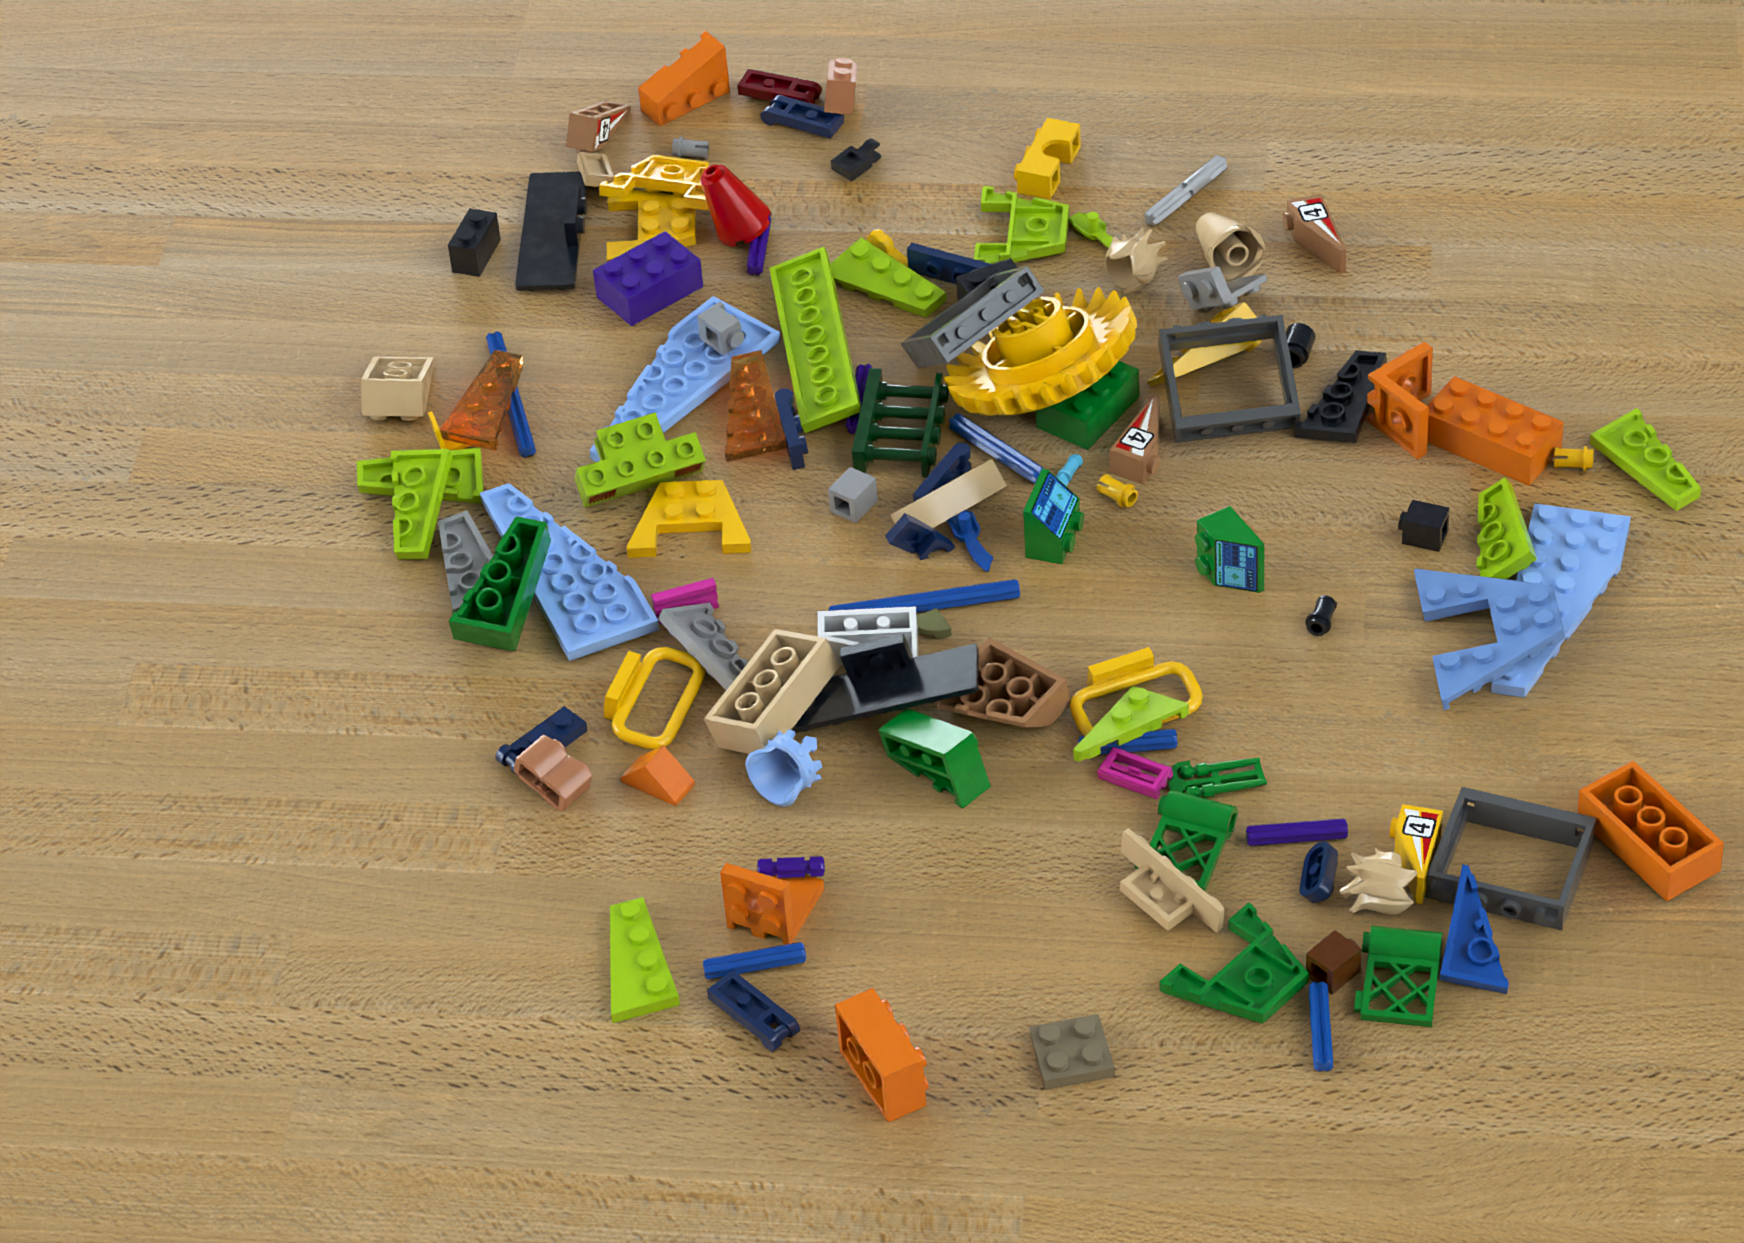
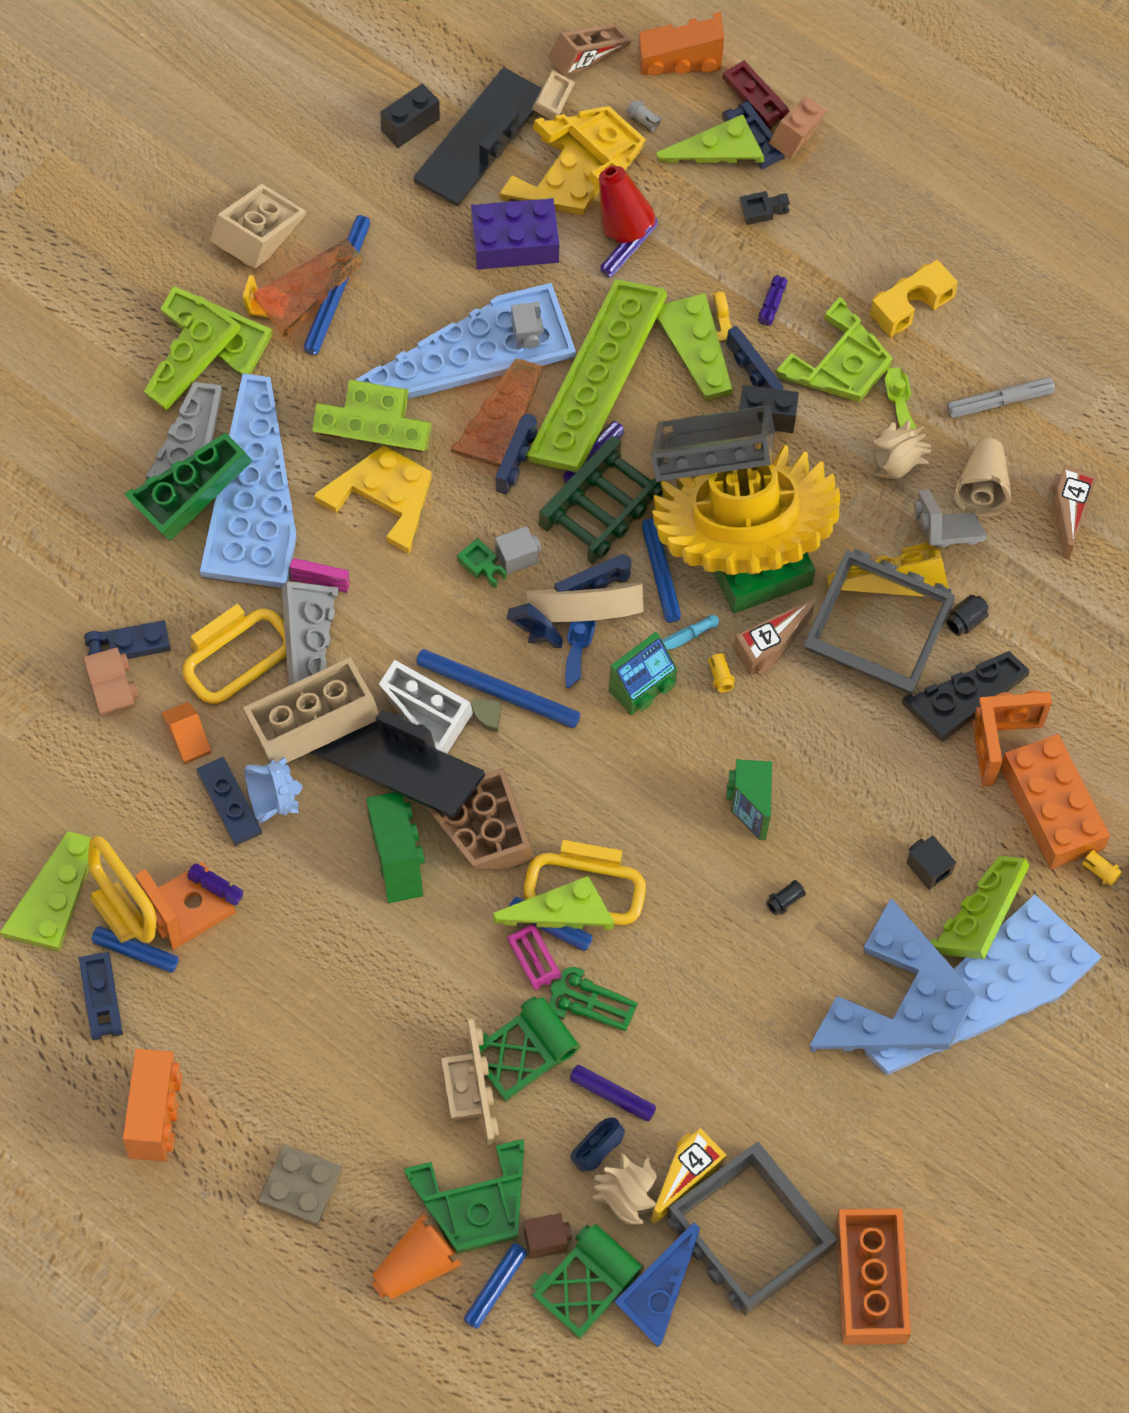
camera: 25 degrees right, 20 degrees up
(708, 933) = (114, 902): none -> yellow bar
(745, 808) = (229, 801): none -> dark blue plate
(777, 134) = (721, 143): none -> lime wing
(825, 519) = (481, 560): none -> green plate
(923, 219) = (772, 300): none -> dark purple axle
(1234, 1035) = (414, 1260): none -> orange cone

